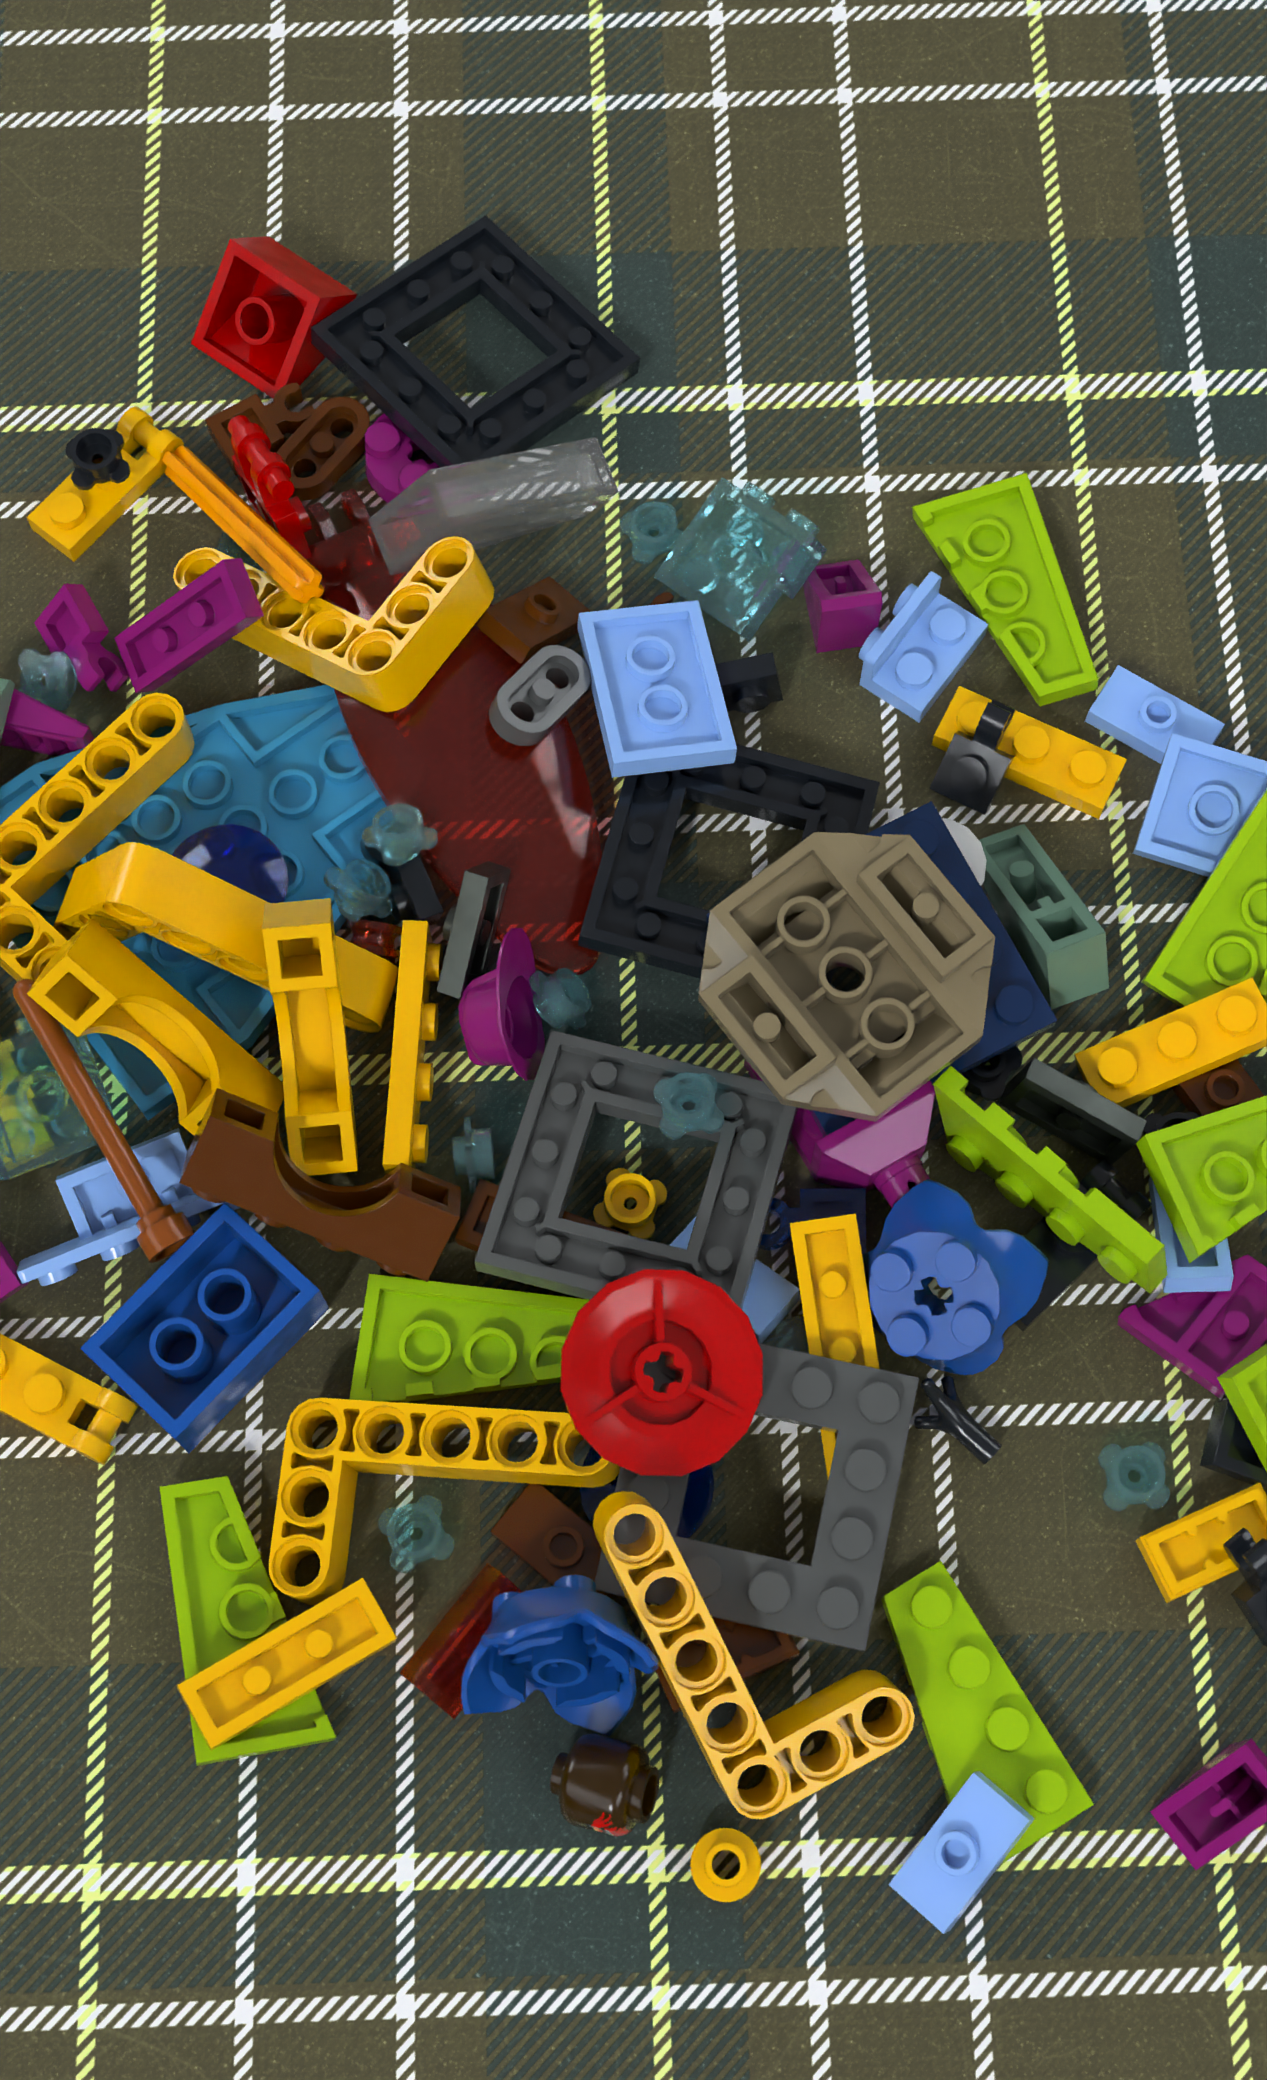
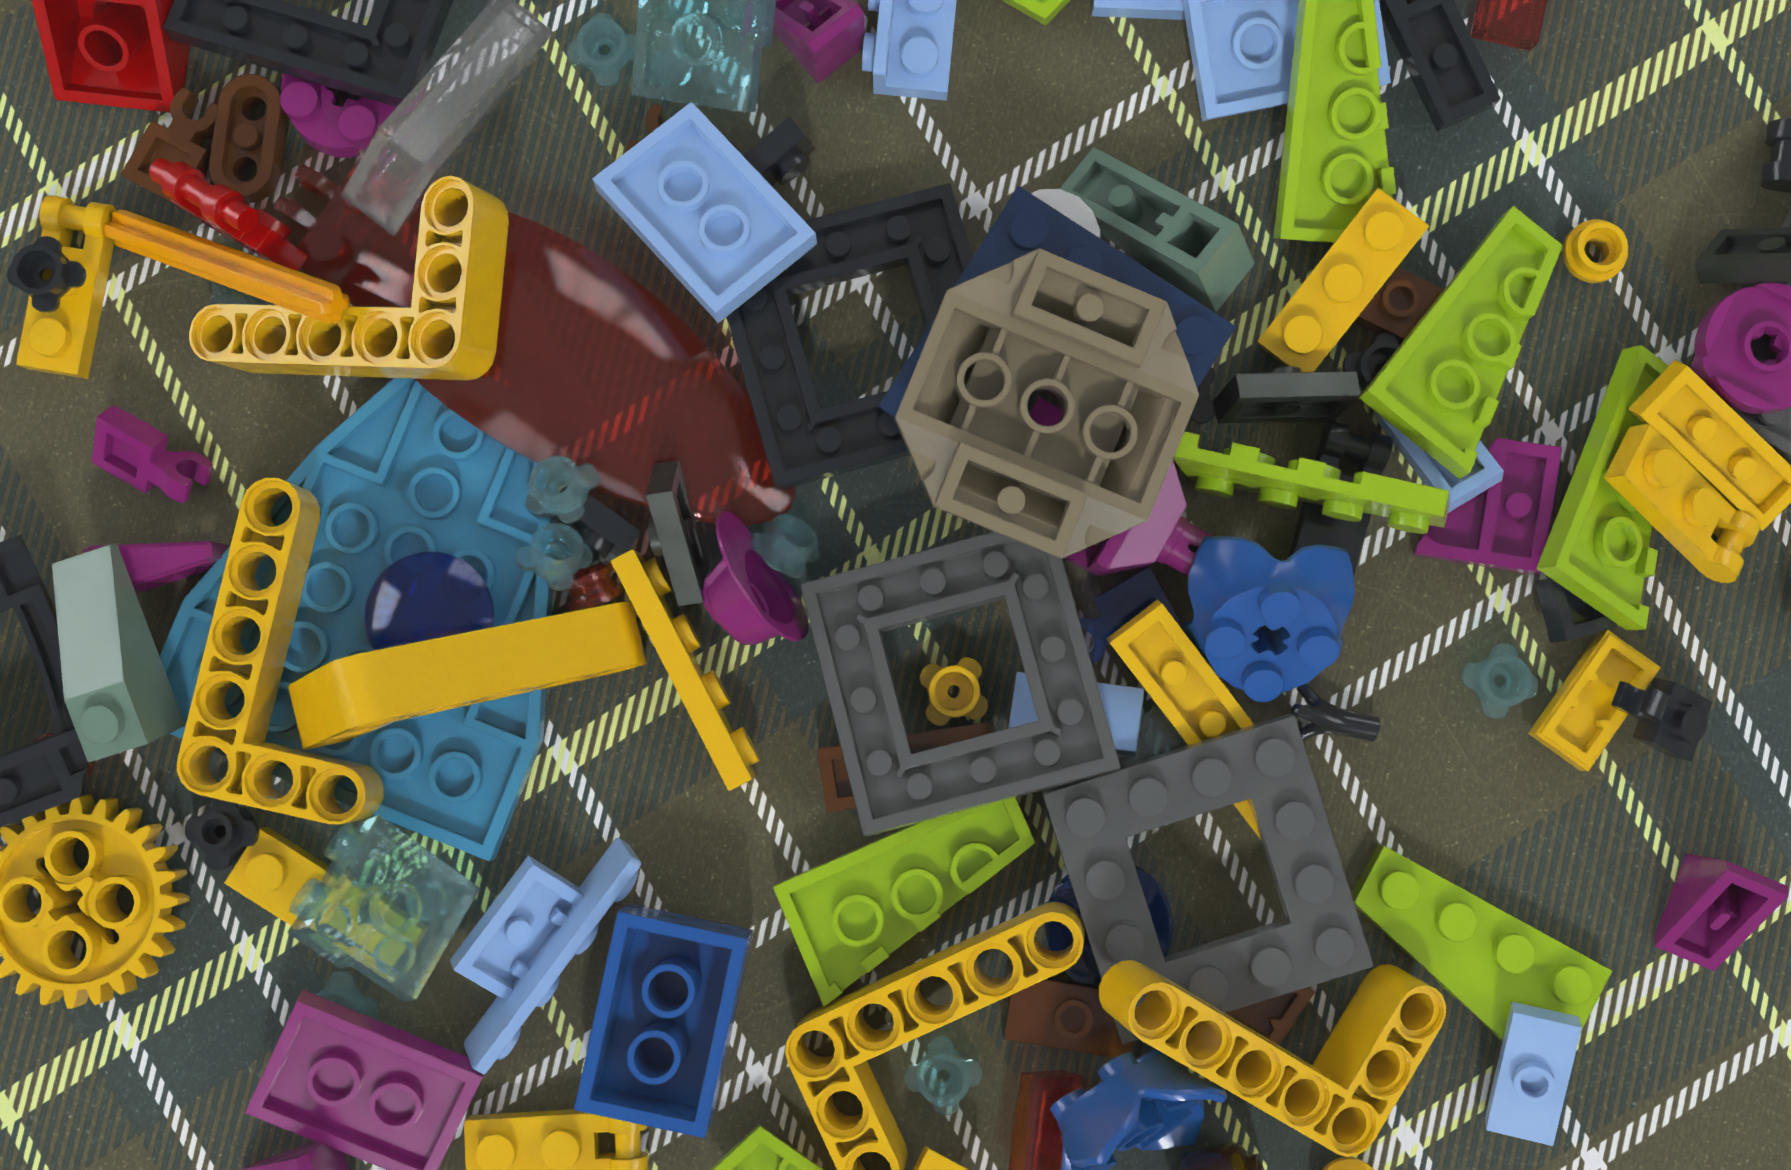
camera: 30 degrees left, 15 degrees up
(58, 673) = (140, 512): clear light blue plate -> none
(107, 989) = (546, 806): yellow arch -> none
(159, 1225) = (572, 962): dark orange piece -> none
(189, 625) = (242, 394): magenta plate -> none
(311, 1035) = (583, 700): yellow arch -> none
(393, 1220) = (765, 835): reddish brown arch -> none
(474, 1154) = (798, 729): clear light blue plate -> none
(532, 619) = (551, 203): reddish brown plate -> none
(534, 696) = (607, 286): dark grey plate -> none
(692, 1088) = (964, 571): clear light blue plate -> none
(705, 1344) = (1128, 871): red piece -> none
(975, 765) = (1025, 116): black plate -> none
(1043, 755) = (1061, 75): yellow plate -> none

